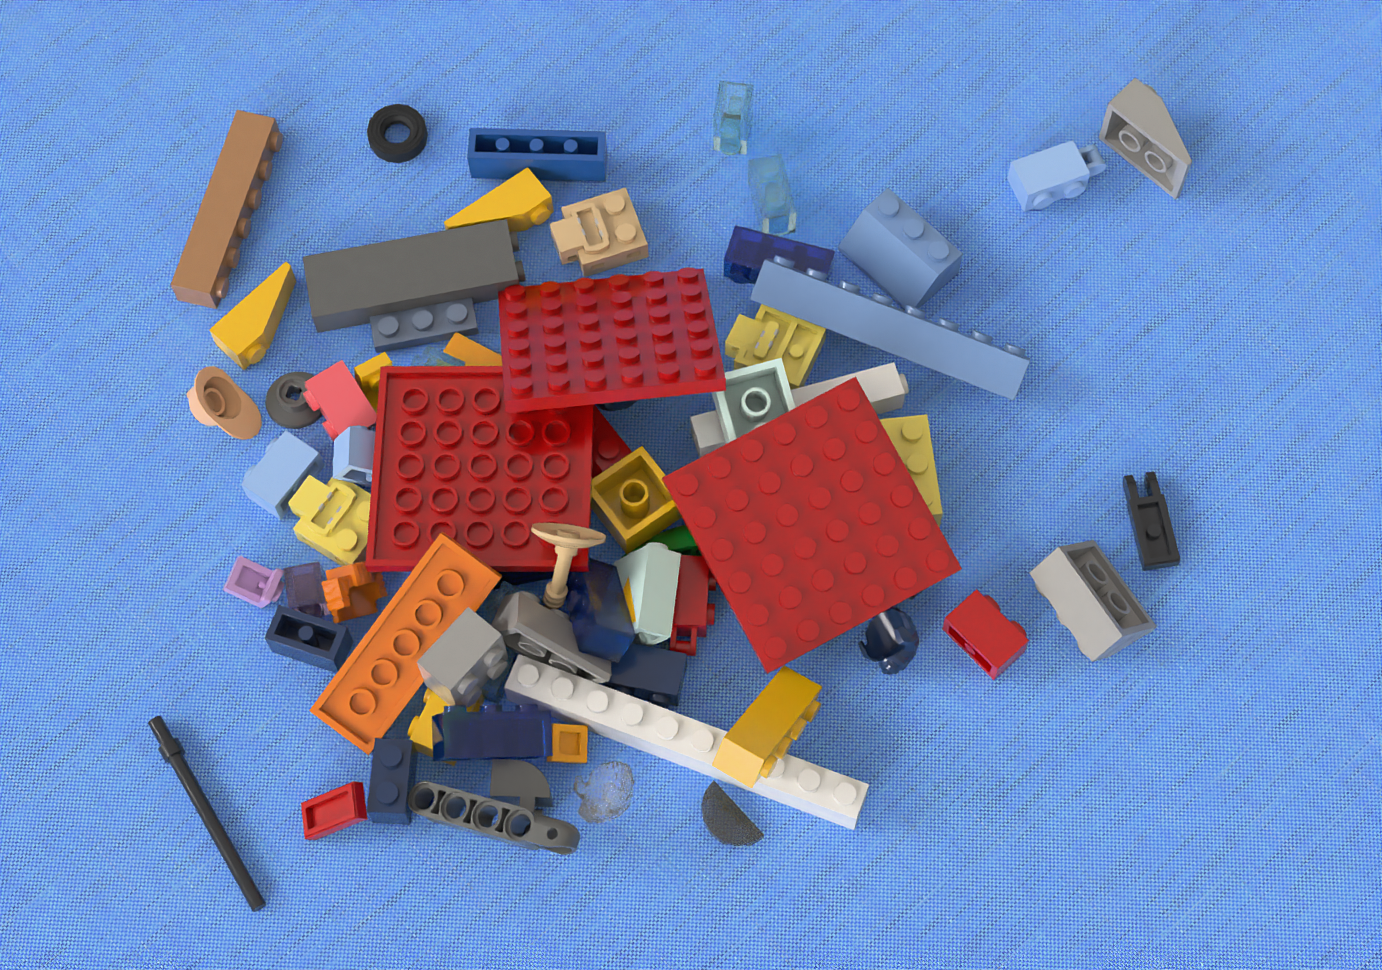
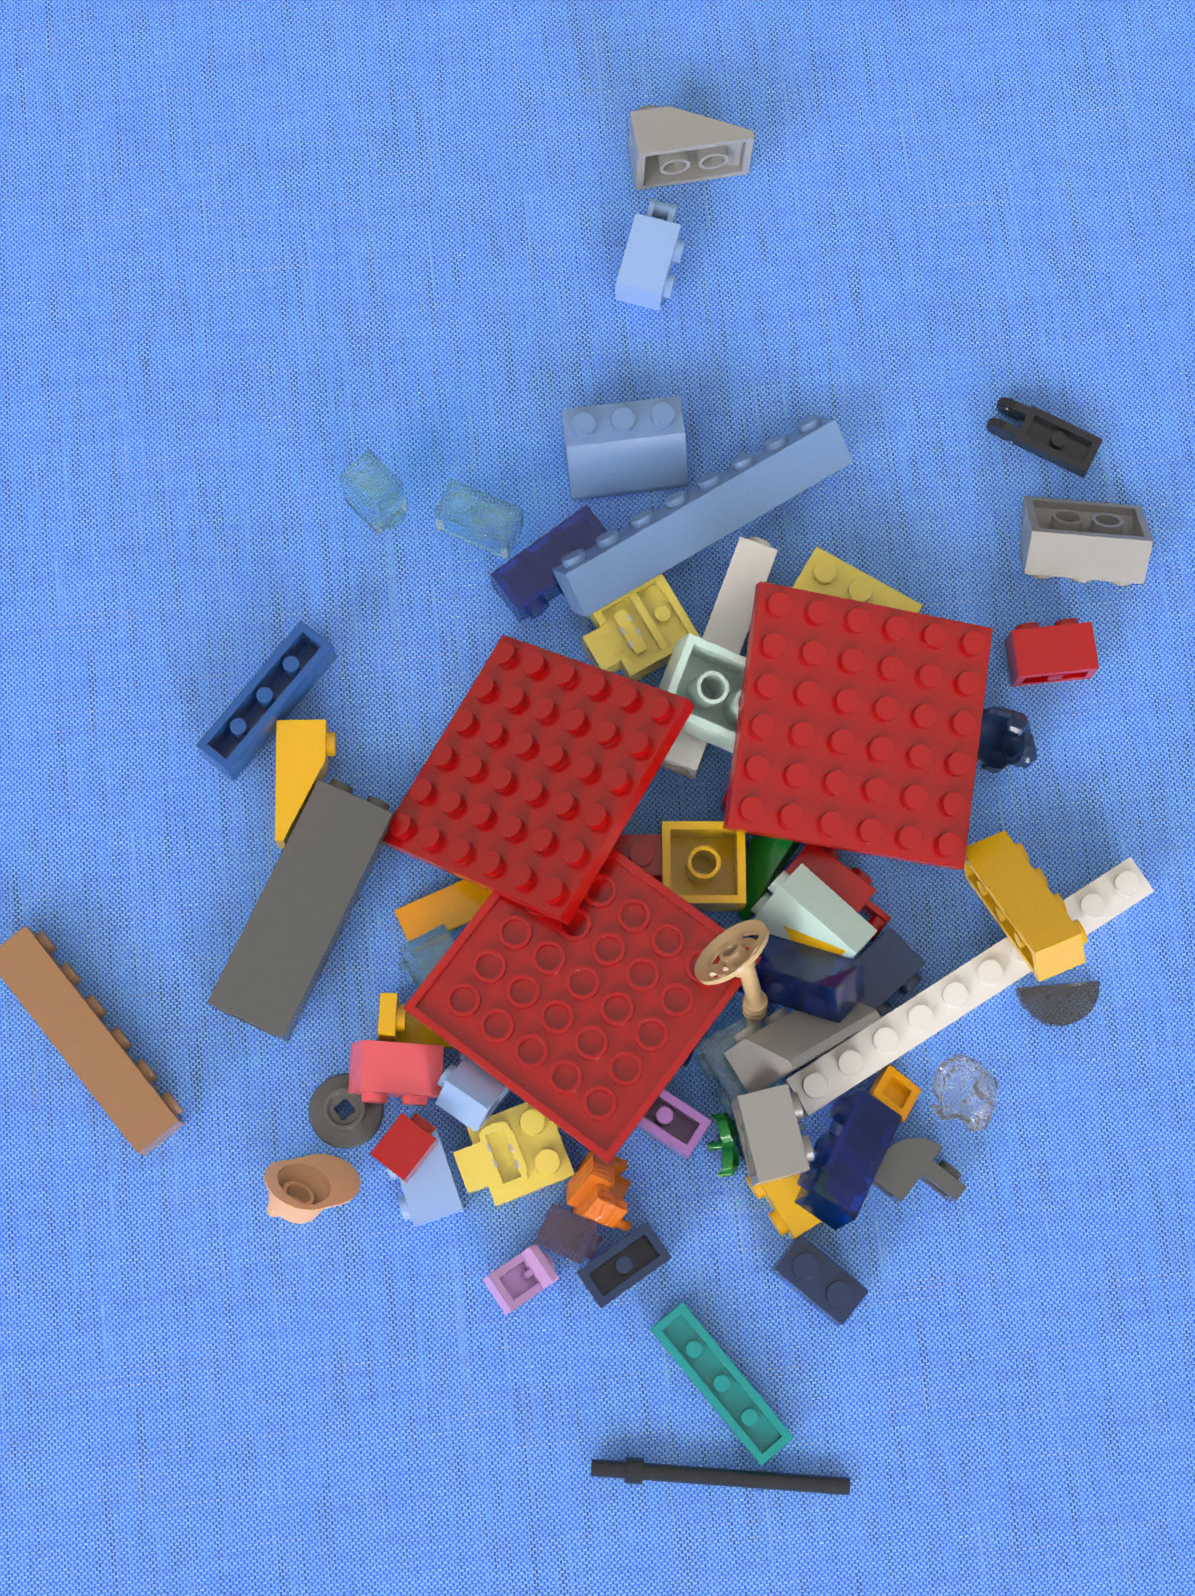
camera: 60 degrees left, 10 degrees up
(252, 323) = (237, 1101): yellow slope -> none
(272, 767) = (721, 1383): none -> teal plate
(288, 436) = (406, 1145): none -> red brick
(334, 810) = (812, 1355): red tile -> none
(383, 667) = (705, 1176): orange plate -> none
(393, 115) = (111, 799): black tyre -> none
(423, 325) = (361, 935): sand blue plate -> none
(544, 833) = (888, 1253): dark grey piece -> none
(600, 233) = (393, 702): tan piece -> none

